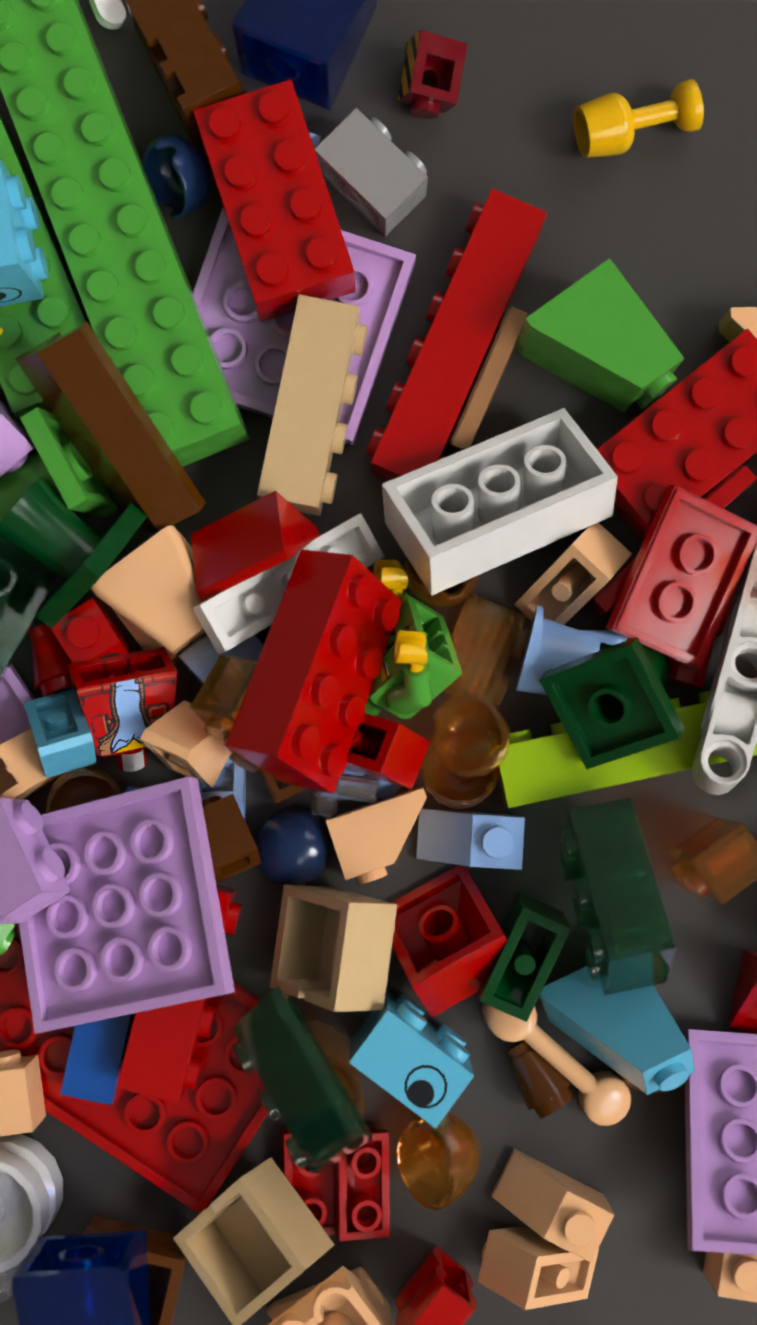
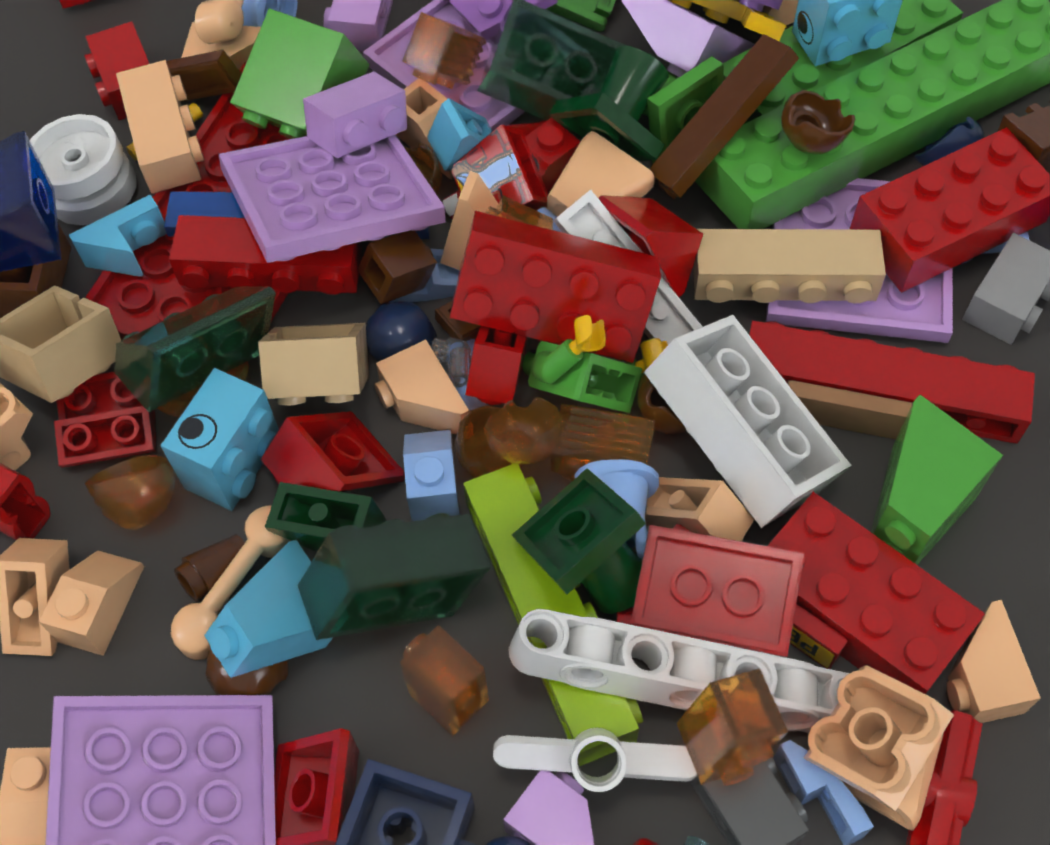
camera: 85 degrees right, 25 degrees down
(120, 1167) = (112, 239): none -> medium azure slope
(162, 324) = (815, 123): none -> reddish brown hair

